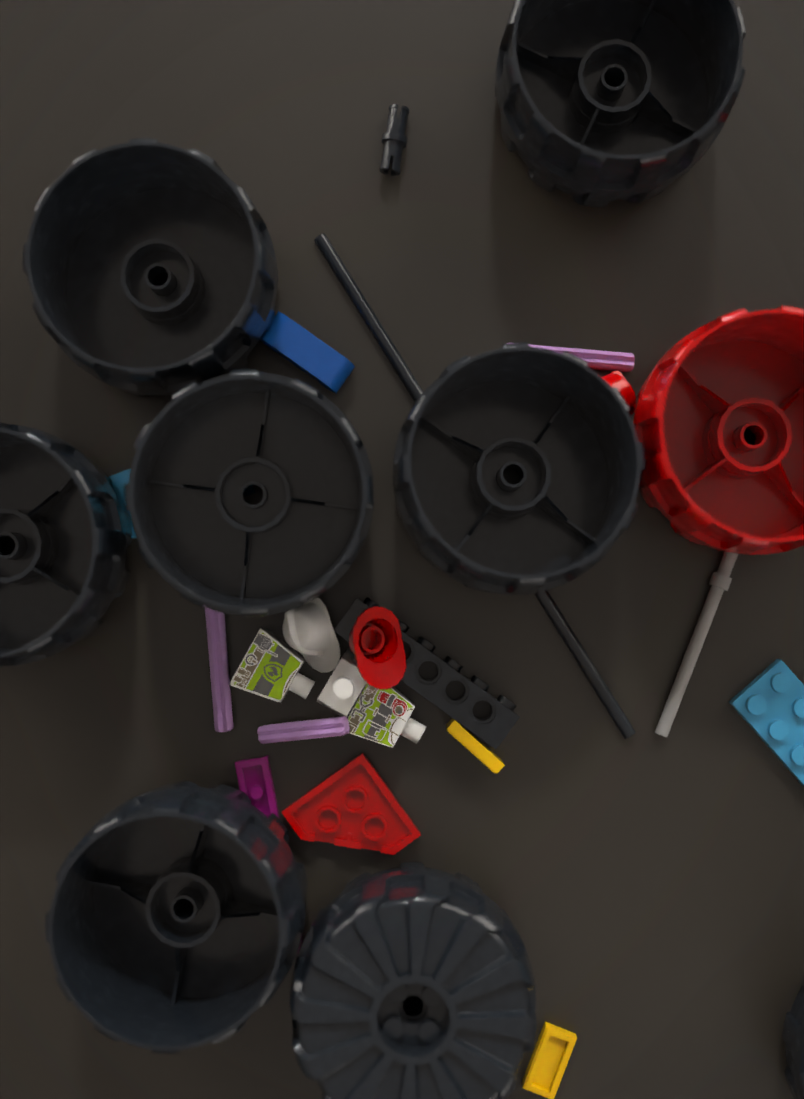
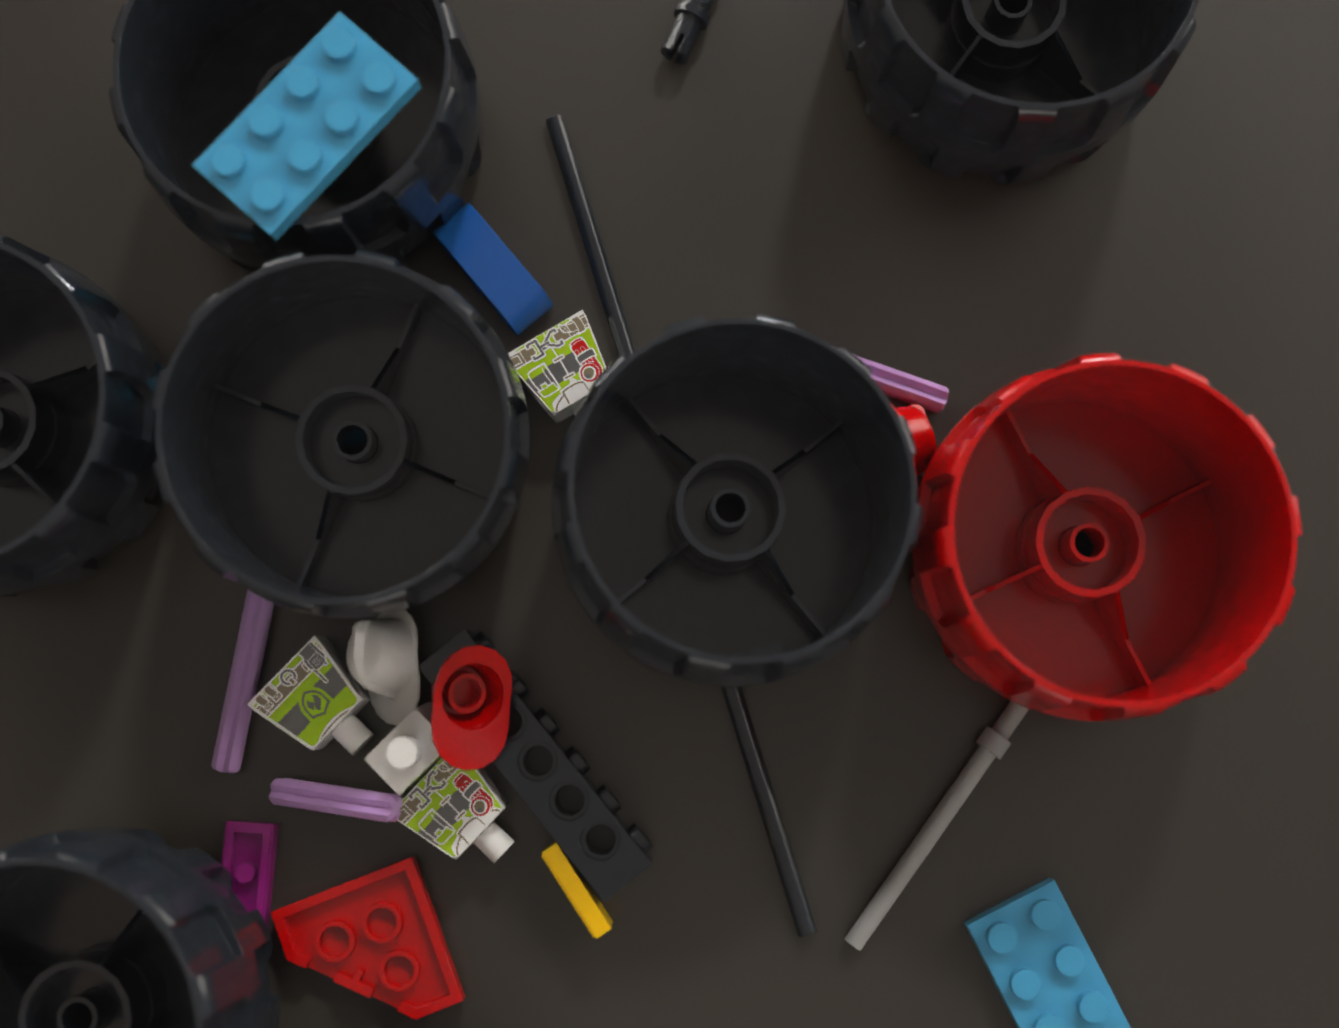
camera: 10 degrees right, 5 degrees down
(173, 295) = (307, 126): none -> dark azure plate
(375, 408) = (560, 366): none -> torso

